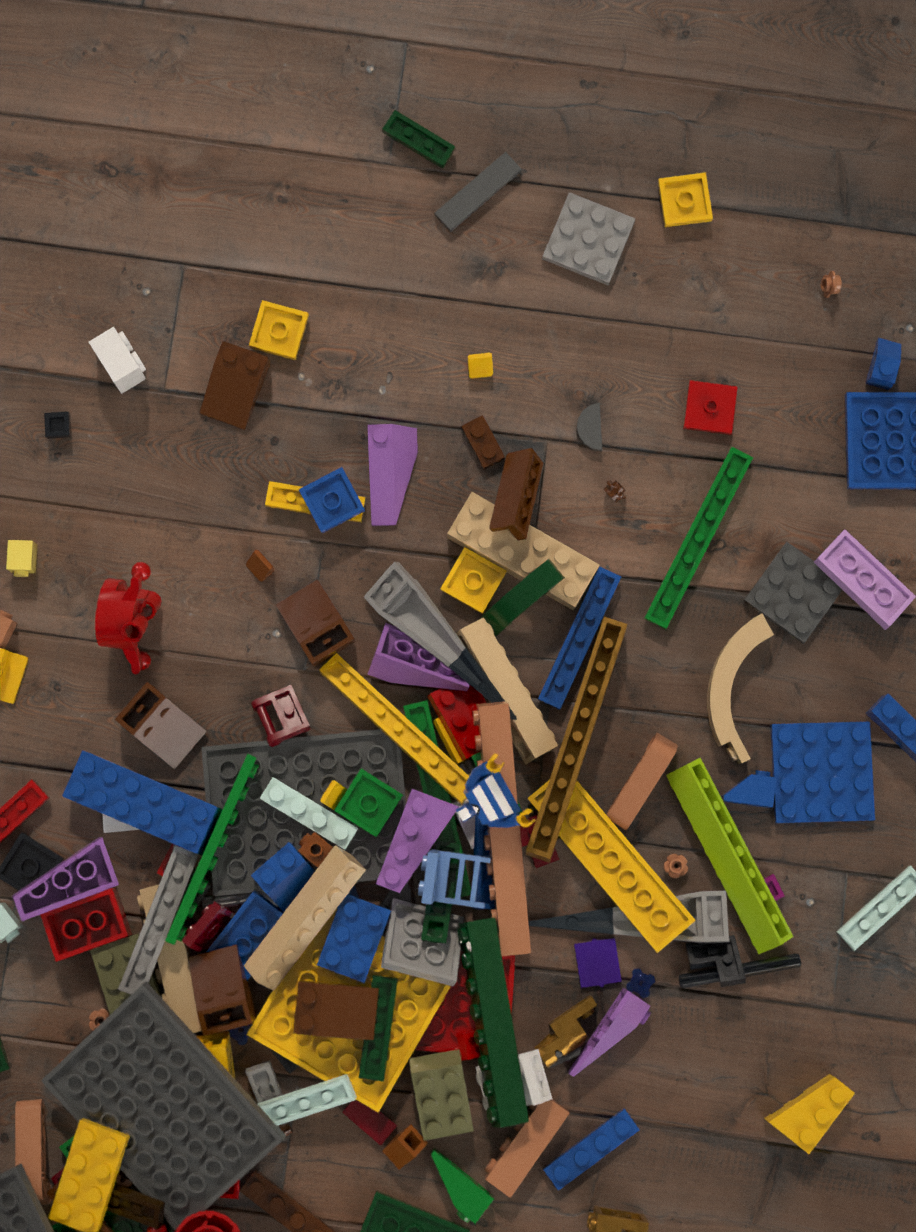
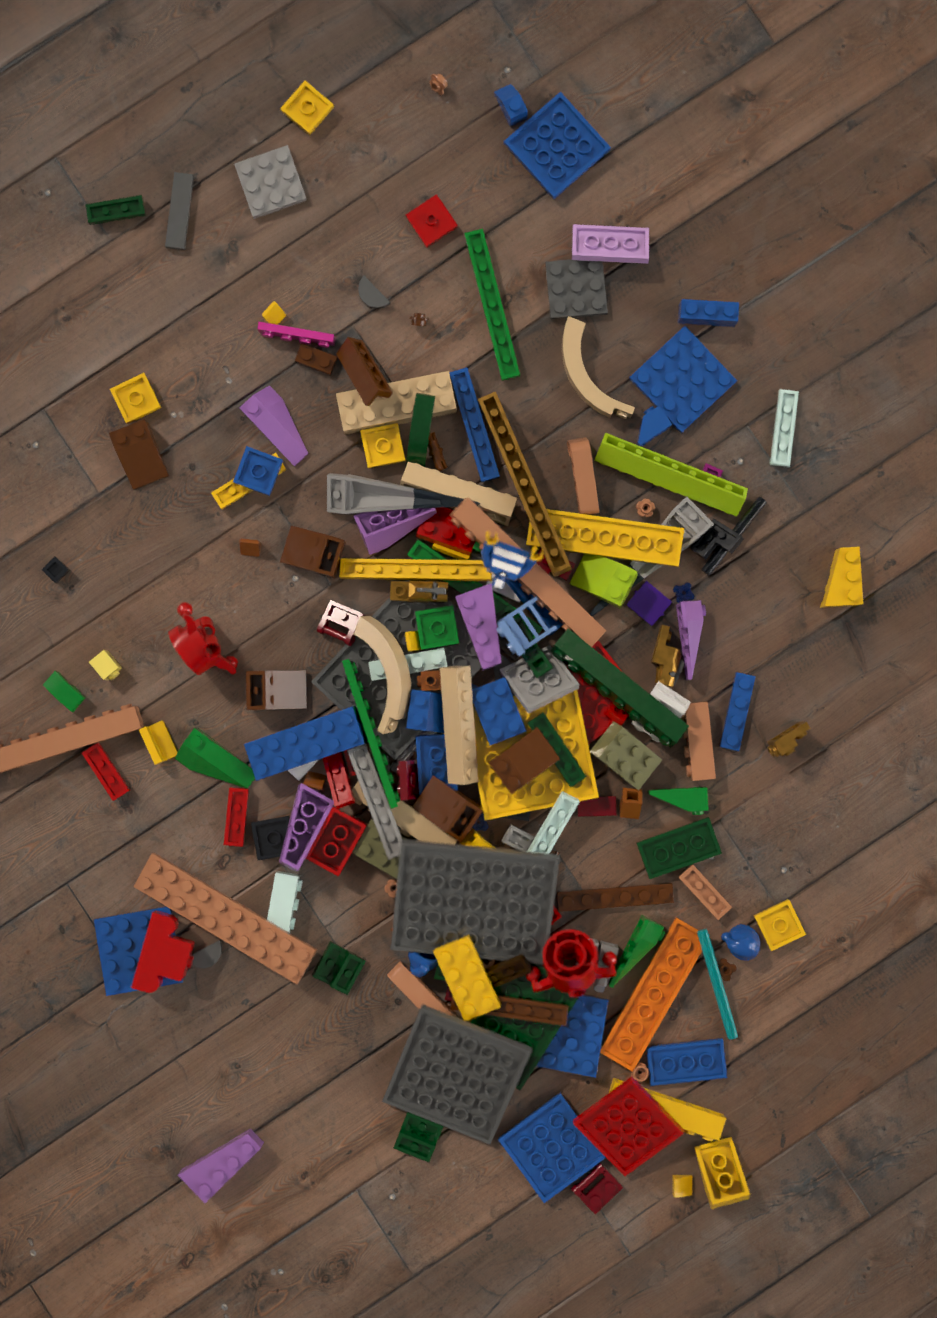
camera: 35 degrees left, 5 degrees up
(40, 735) = (210, 758): none -> green wedge
(59, 1121) = (421, 963): none -> blue piece
(114, 353) = (56, 499): white brick -> none
(119, 846) = (315, 780): none -> dark orange slope
(141, 867) = (338, 780): none -> red plate
(292, 807) = (395, 669): none -> tan arch
(382, 751) = (418, 591): none -> pearl gold plate
(490, 410) = (288, 333): none -> dark pink plate
(519, 632) = (436, 453): none -> reddish brown pin
(574, 900) = (604, 579): none -> lime slope

